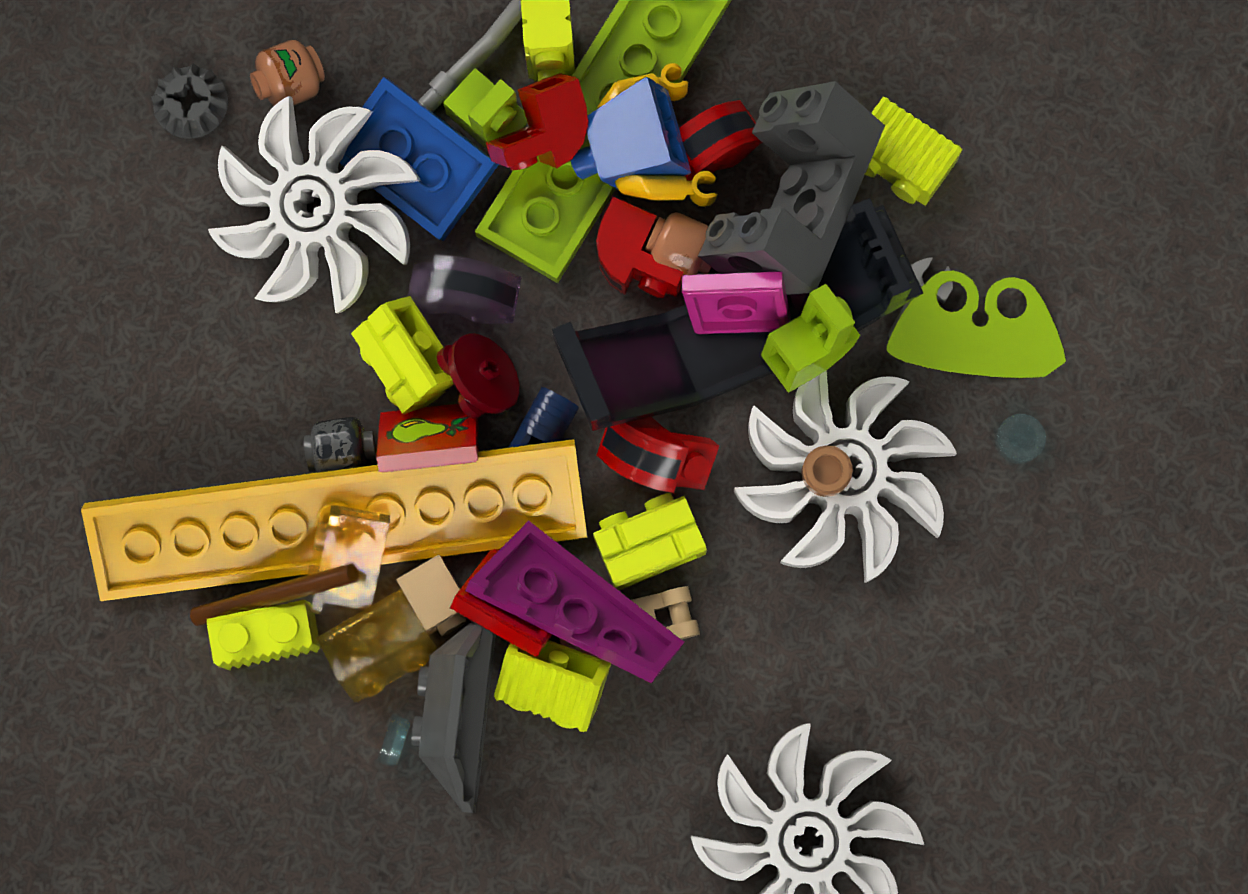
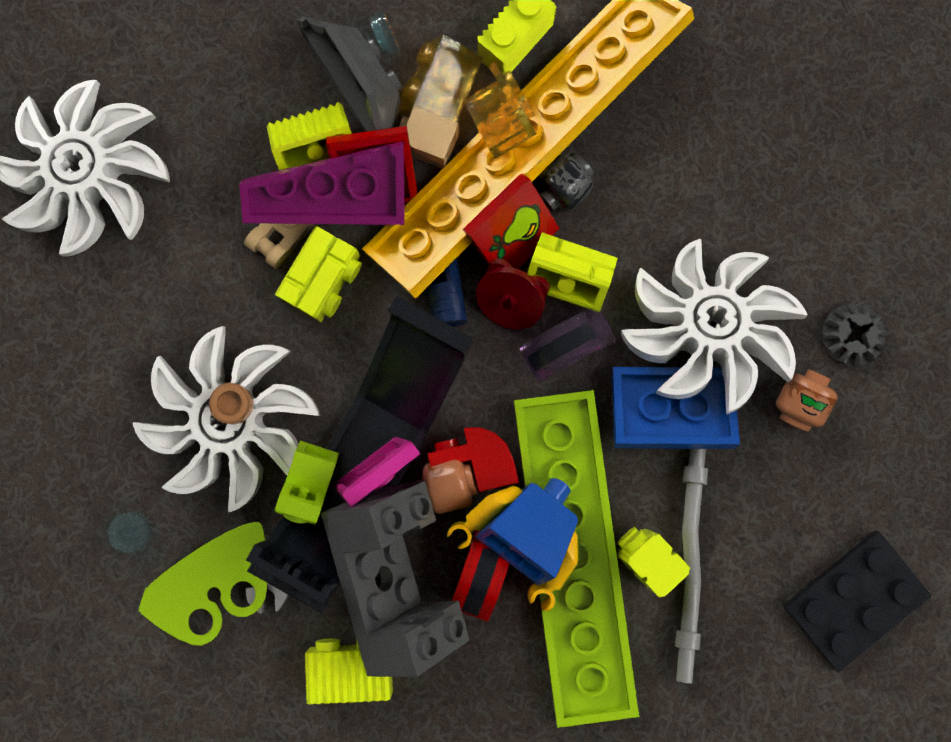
camera: 140 degrees right, 5 degrees up
(277, 593) = (524, 54): reddish brown bar -> none
(485, 108) = (651, 476): lime brick -> none
(554, 129) = (592, 492): red brick -> none
(657, 457) = (350, 328): red brick -> none

